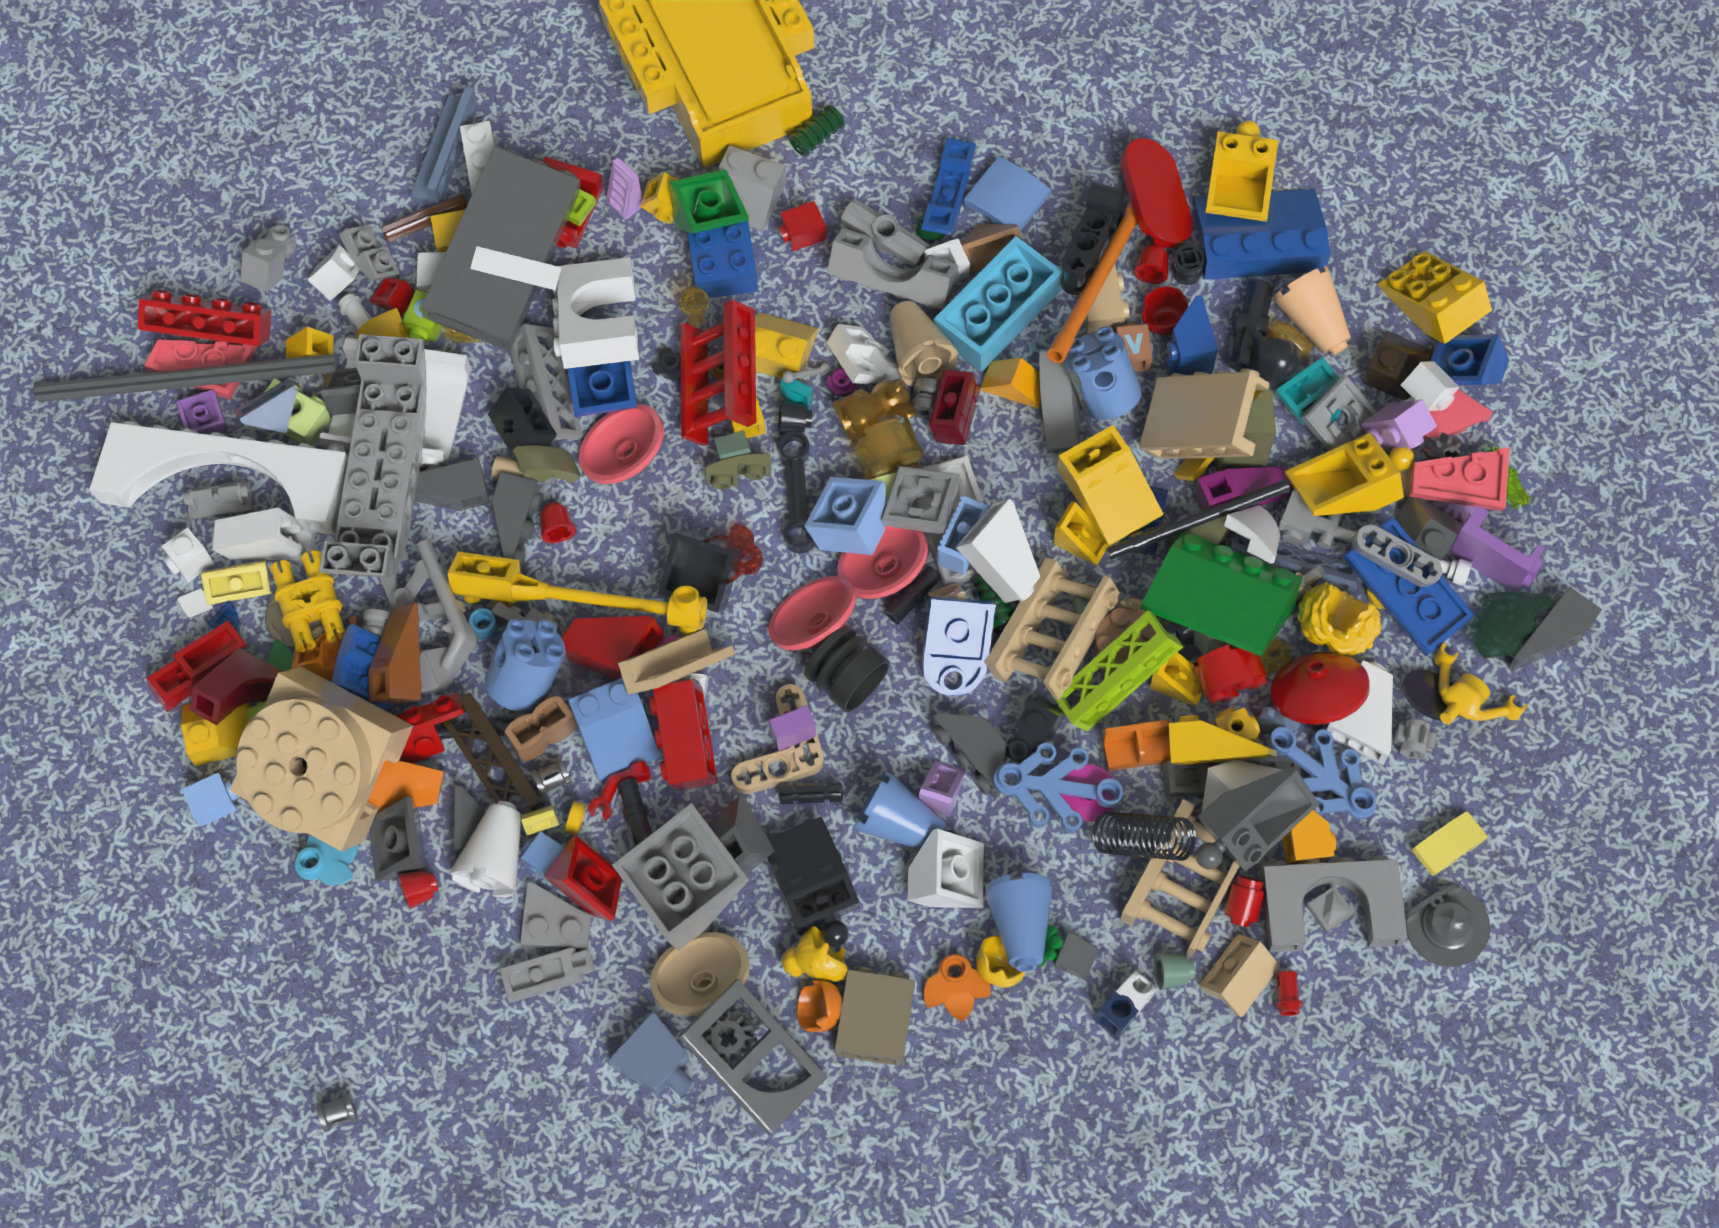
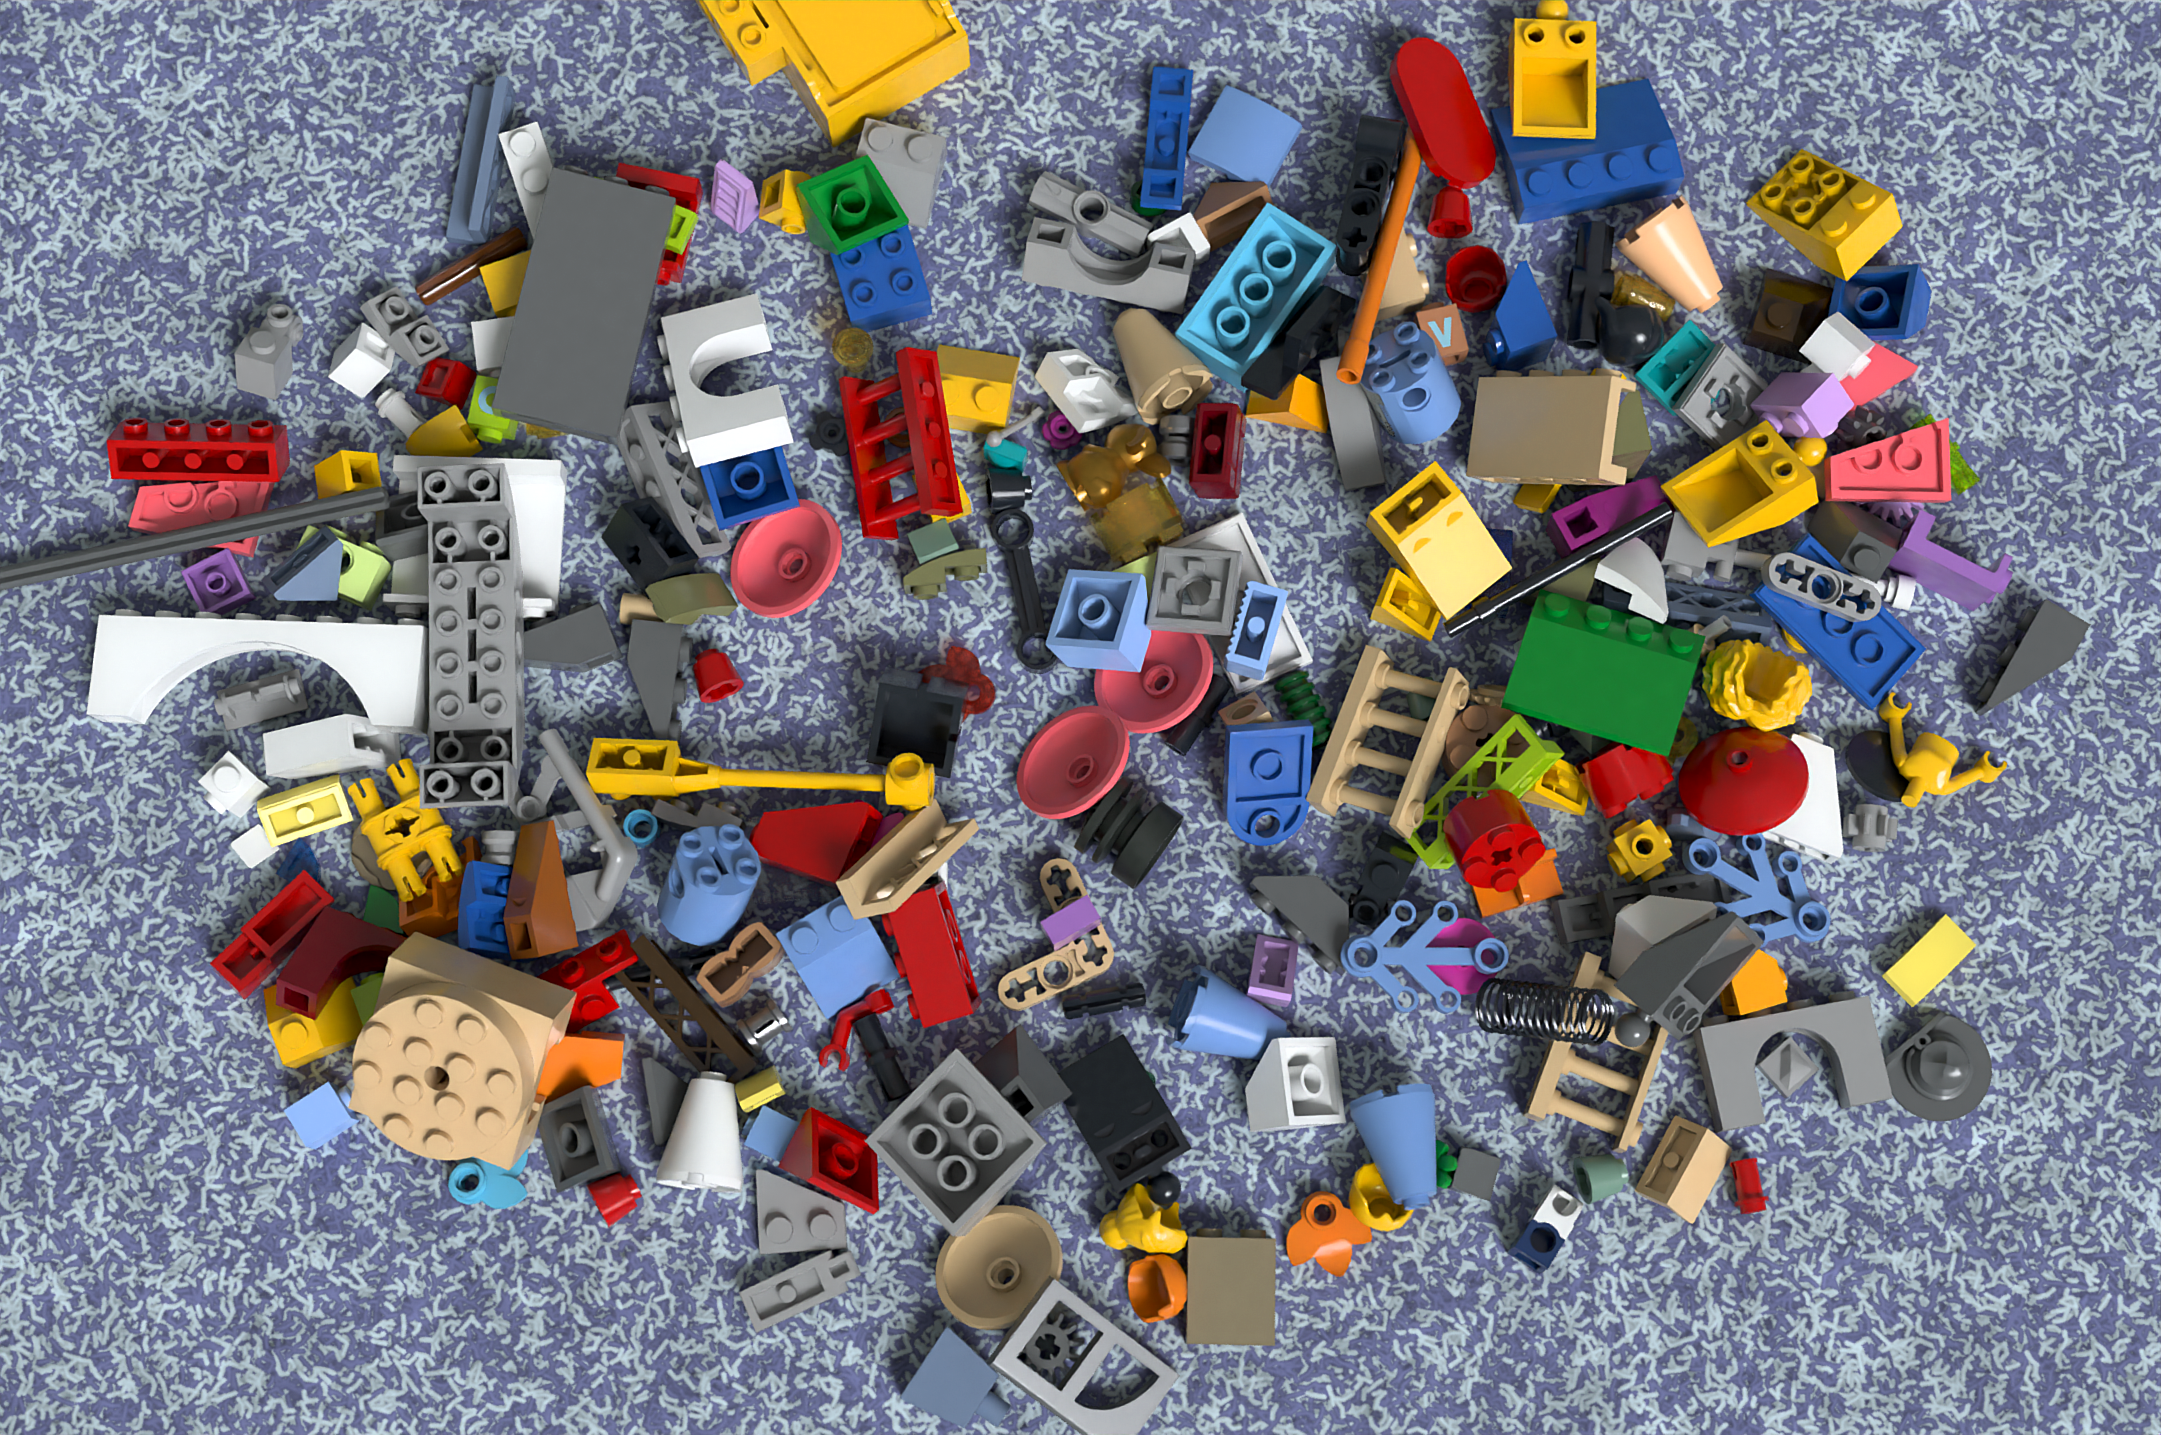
camera: 10 degrees left, 10 degrees up
(516, 268) = (608, 335): white sticker -> none
(575, 818) = (805, 1076): yellow tile -> none
(802, 226) = (979, 218): red brick -> none
(817, 130) = (978, 77): dark green piece -> none
(1001, 552) = (1310, 651): white slope -> none
(1025, 336) = (1298, 342): none -> black bracket
(1119, 702) = (1492, 840): none -> red brick
(1189, 271) = (1494, 218): black wheel -> none
(1202, 742) = (1611, 876): yellow slope -> none
(1244, 901) = (1680, 1074): red brick -> none
(1506, 621) = (1969, 653): clear green slope -> none

